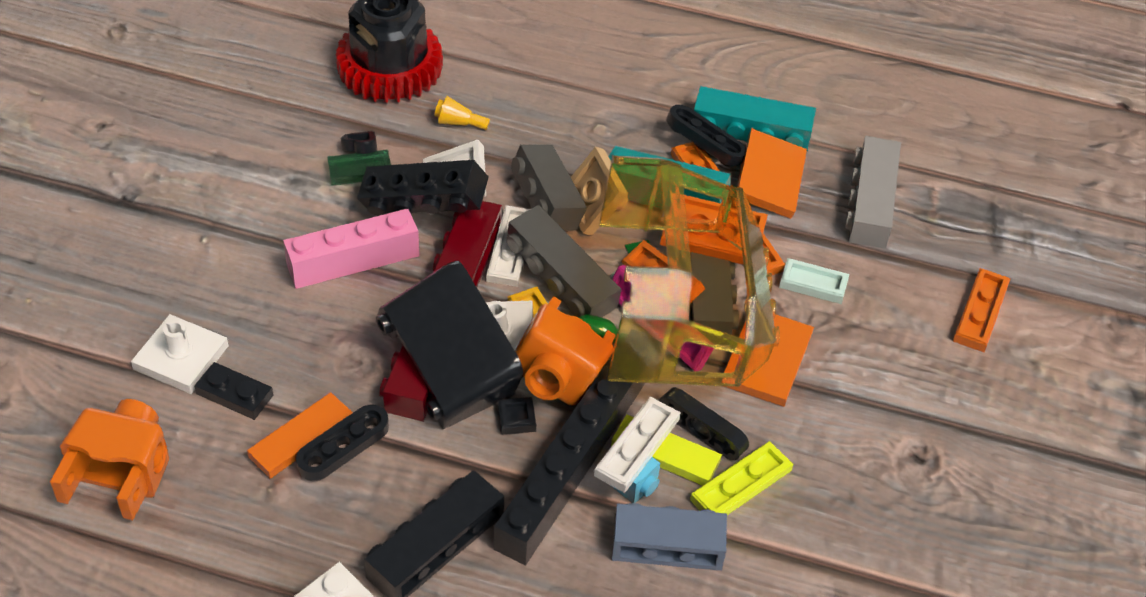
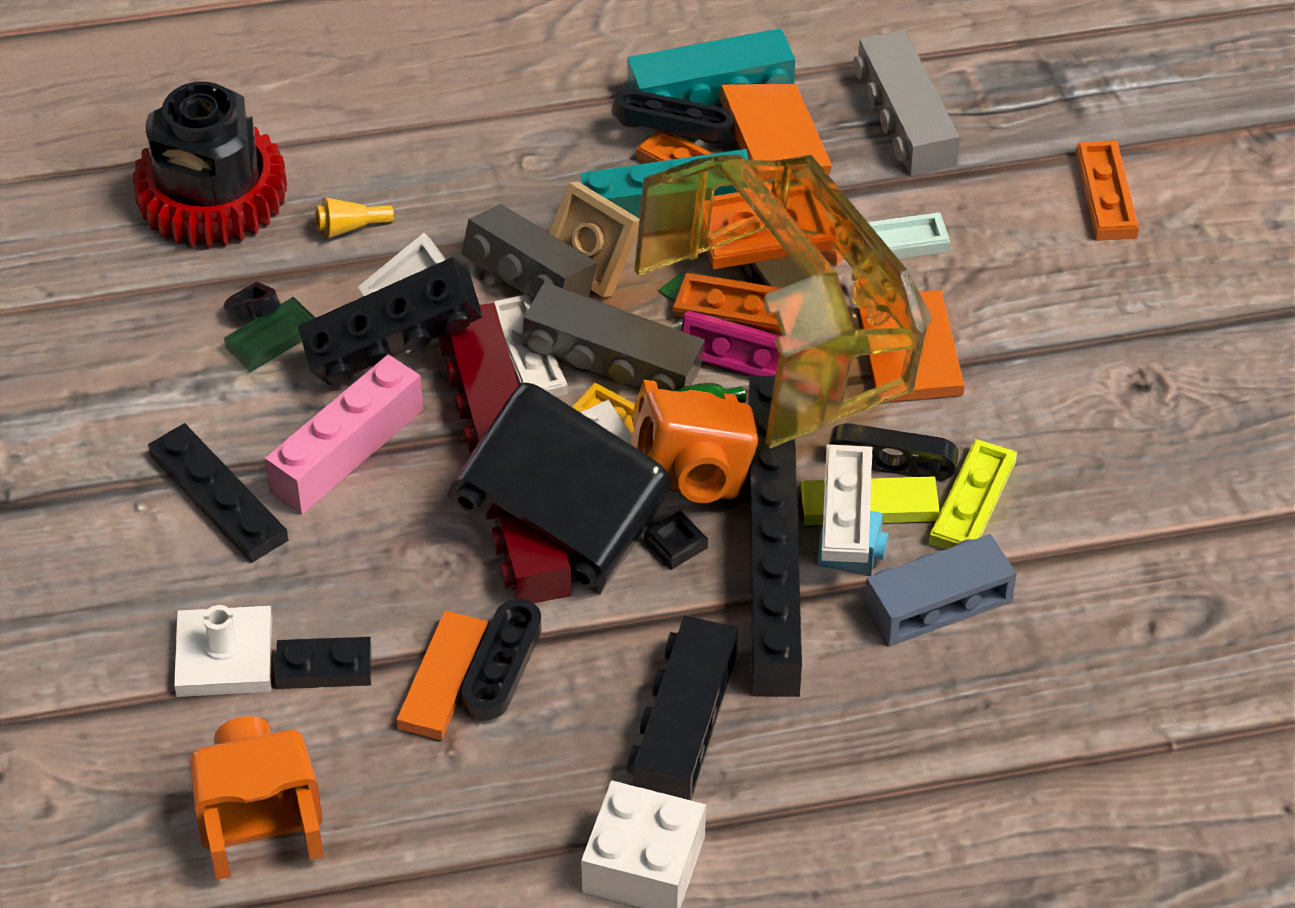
camera: 25 degrees left, 0 degrees up
(253, 252) = (218, 492): none -> black plate

